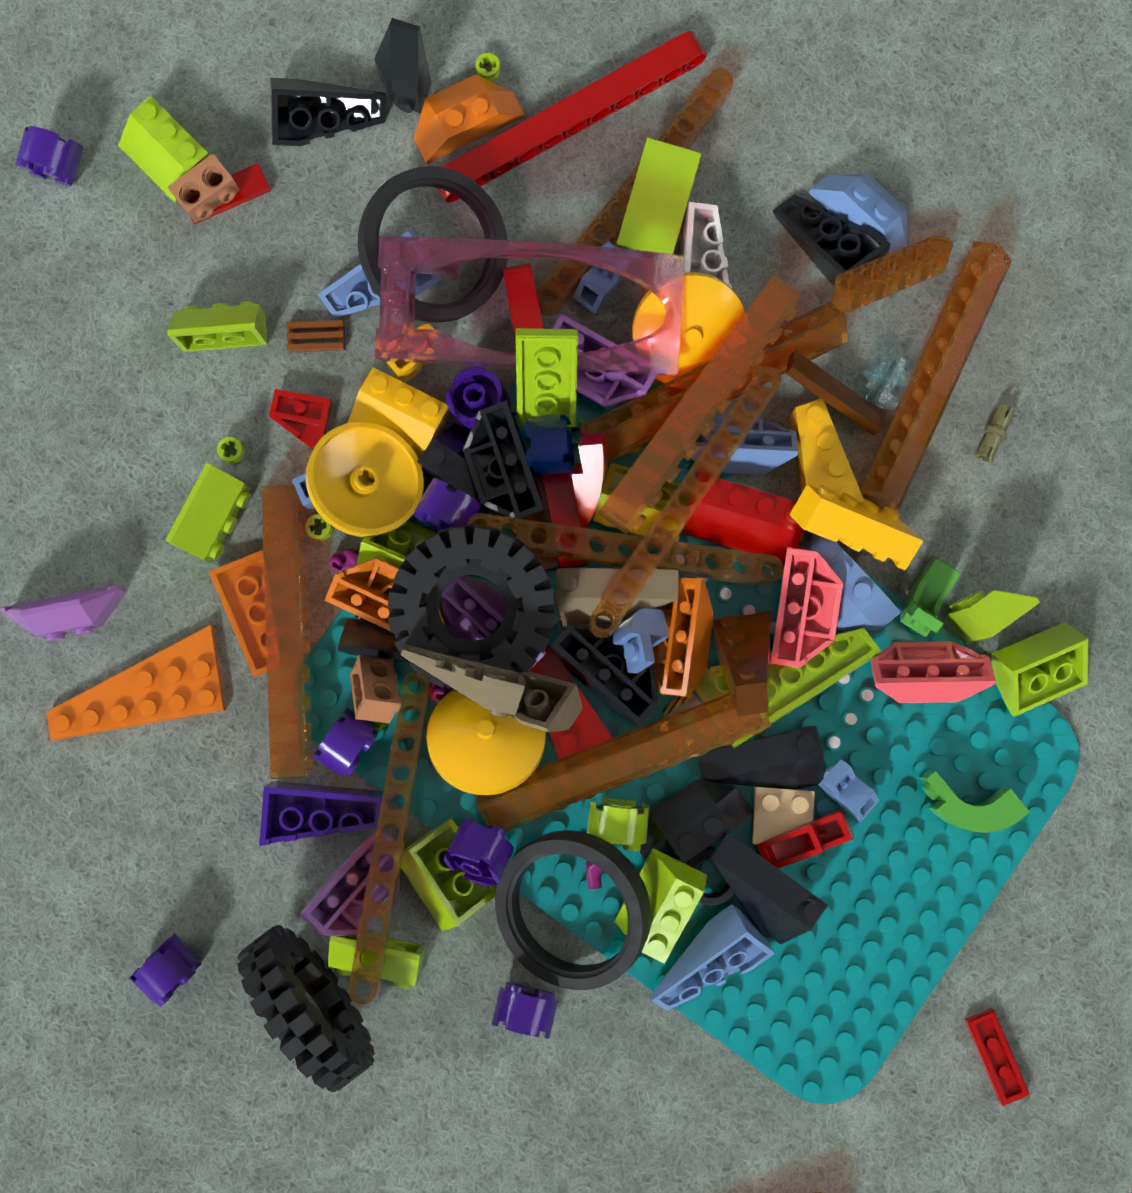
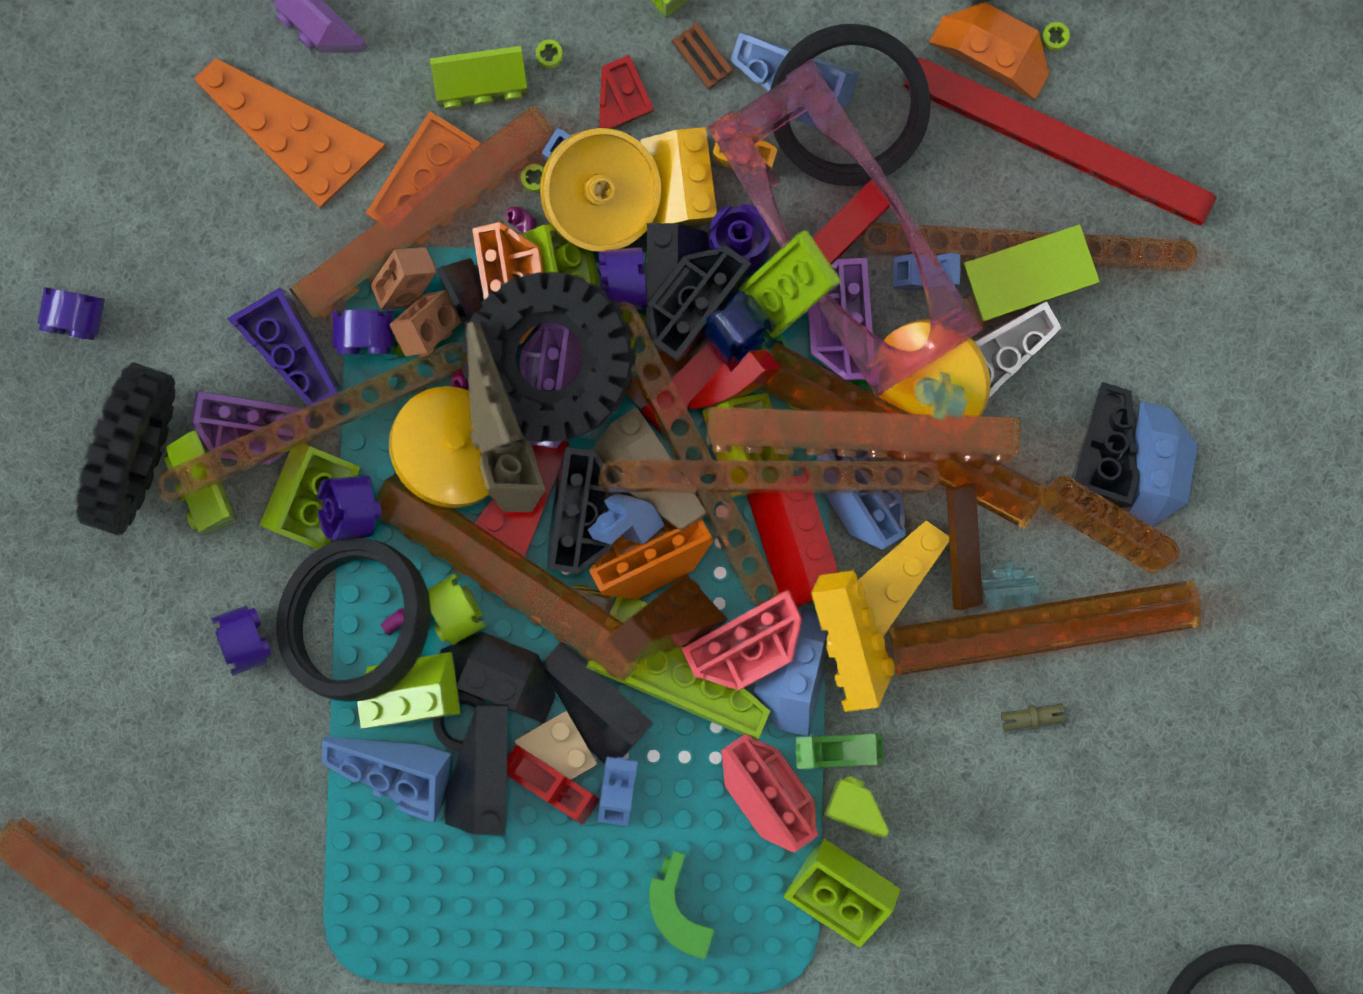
camera: 55 degrees right, 0 degrees up
(326, 681) = (403, 278): none -> nougat brick
(717, 322) = (942, 396): none -> clear light blue hips

